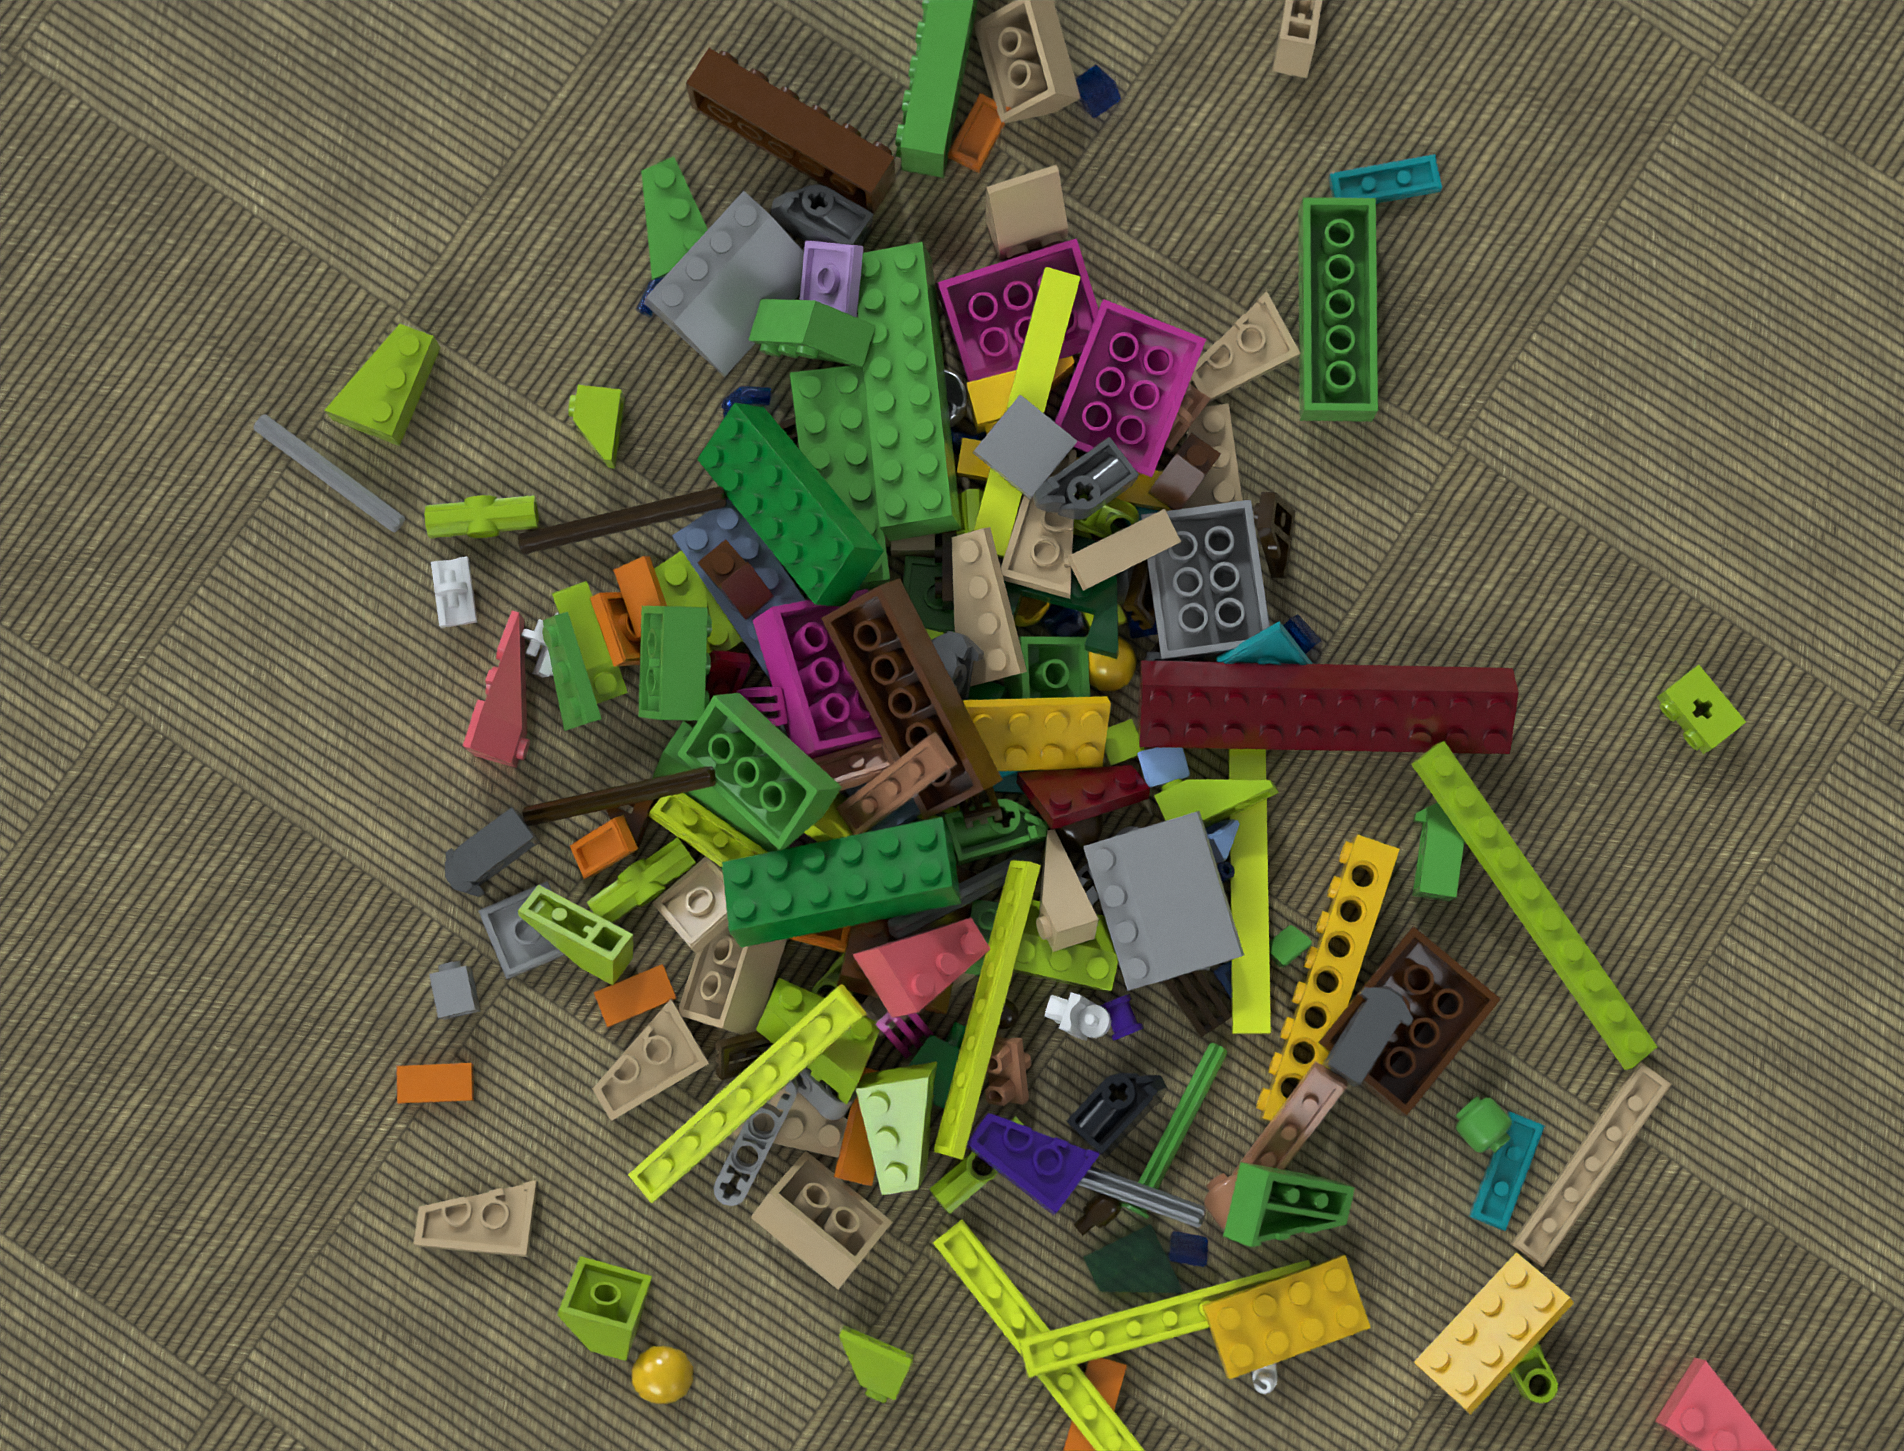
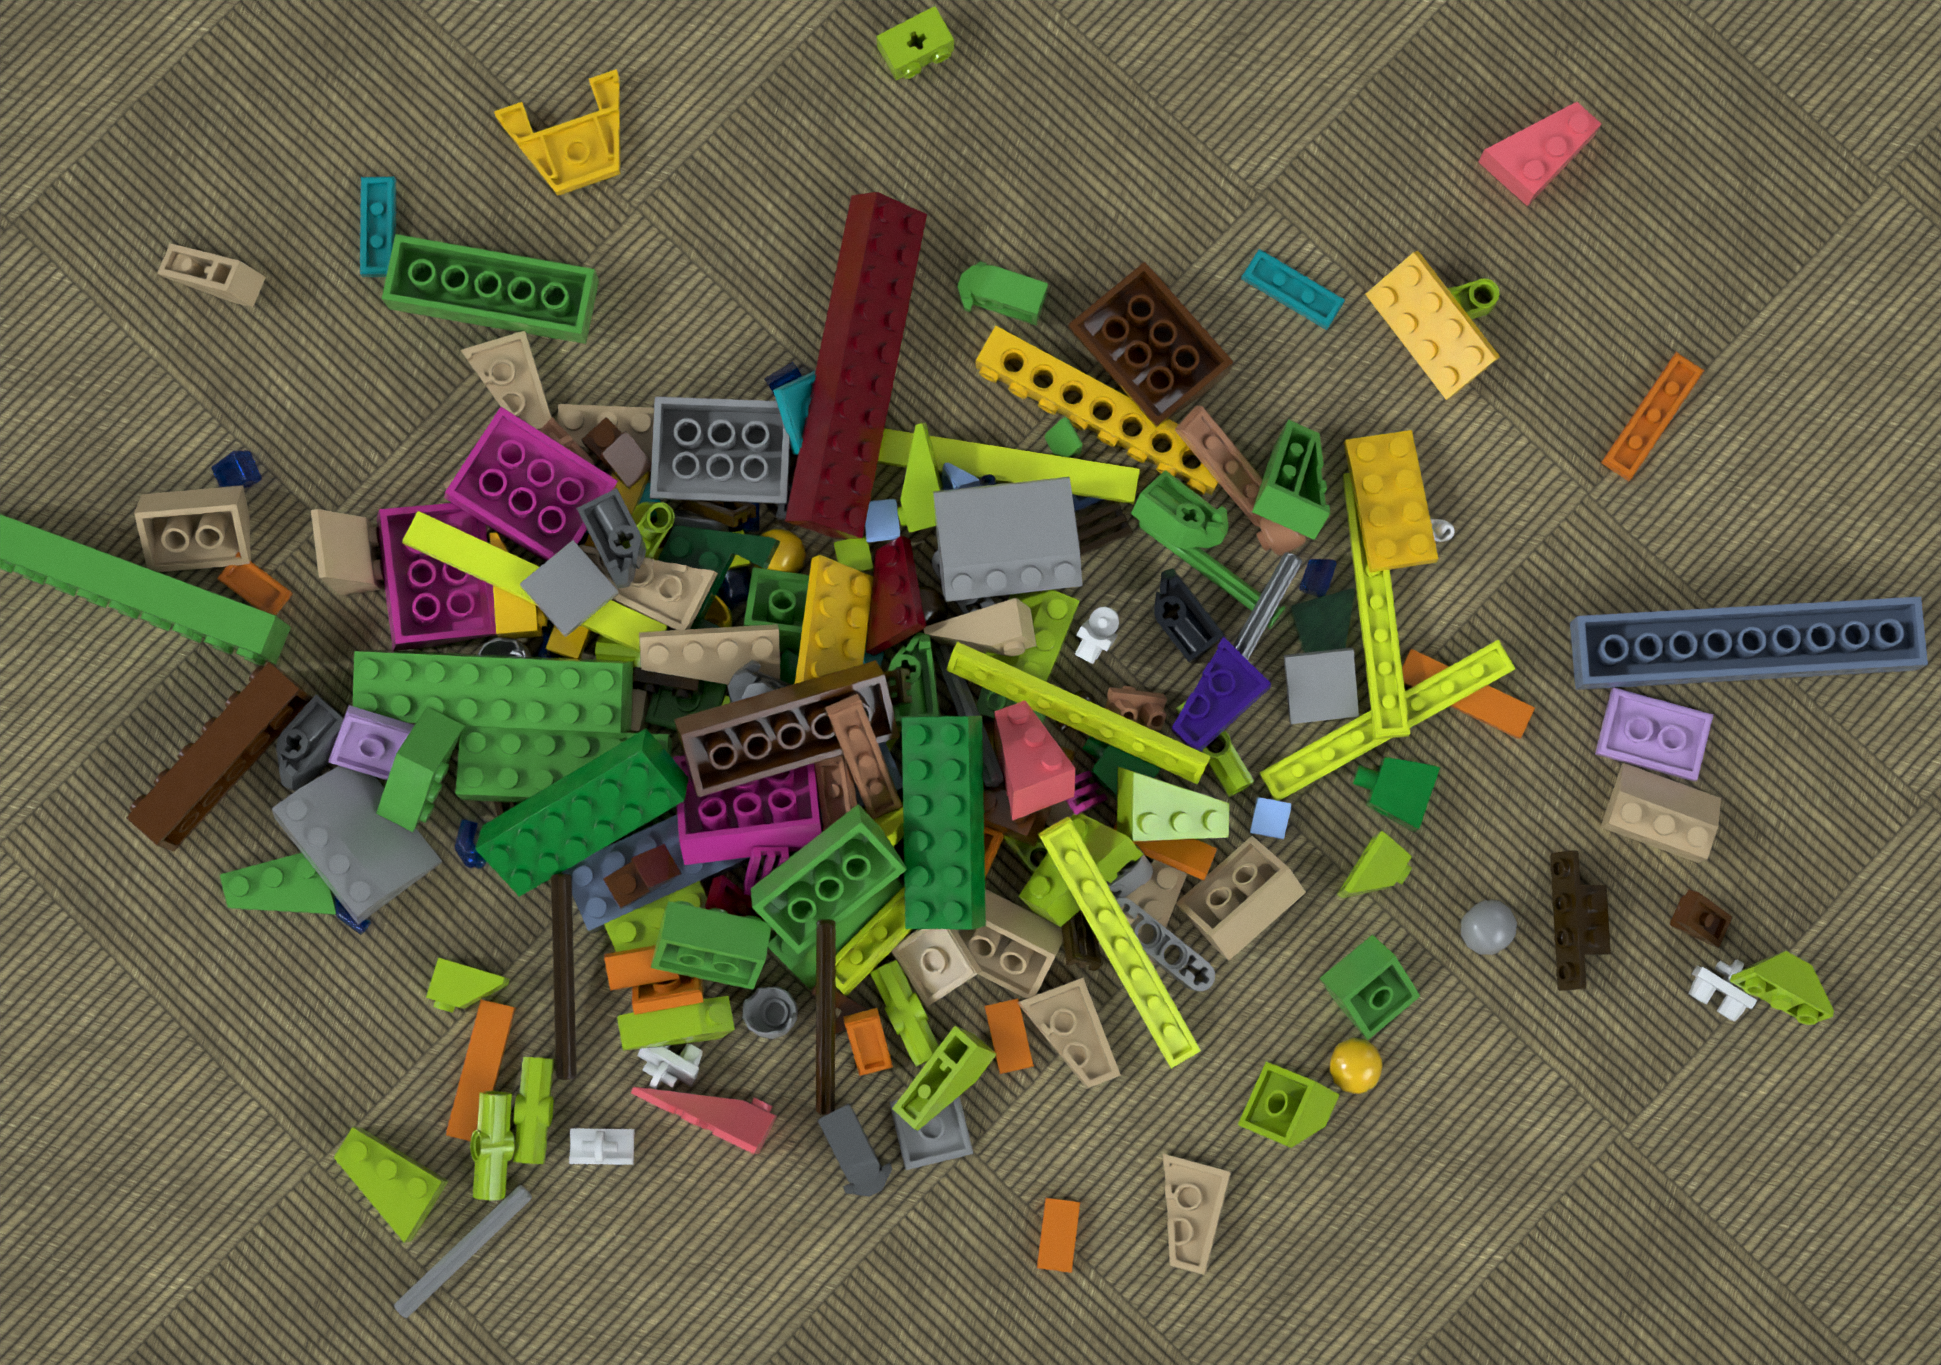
camera: 80 degrees left, 0 degrees up
(438, 481) = (492, 1145): none -> lime piece
(454, 990) = (976, 1203): light grey brick -> none
(514, 456) = (480, 1066): none -> orange tile
(569, 673) = (704, 1045): bright green wing -> none
(619, 739) = (770, 1012): none -> light grey hair
(748, 1376) = (1370, 986): none -> bright green slope
(913, 1239) = (1270, 818): none -> light blue slope
(968, 1375) = (1399, 789): none -> green torso
(1067, 1271) = (1321, 685): none -> light grey tile
(1099, 1212) = (1272, 648): dark brown cylinder -> none
(1122, 1017) = (1101, 597): dark purple bush -> none
(1123, 549) = (681, 516): tan tile -> none
(1227, 1085) = (1180, 514): none -> bright green piece
(1275, 530) = (678, 380): dark brown wing -> none
(1367, 1033) = (1158, 380): dark grey piece -> none
(1483, 1125) = (1251, 299): bright green head -> none
(1509, 372) = (576, 150): none -> yellow wing
(1534, 905) = (1064, 219): lime plate -> none
(1590, 1164) = (1298, 216): tan tile -> none

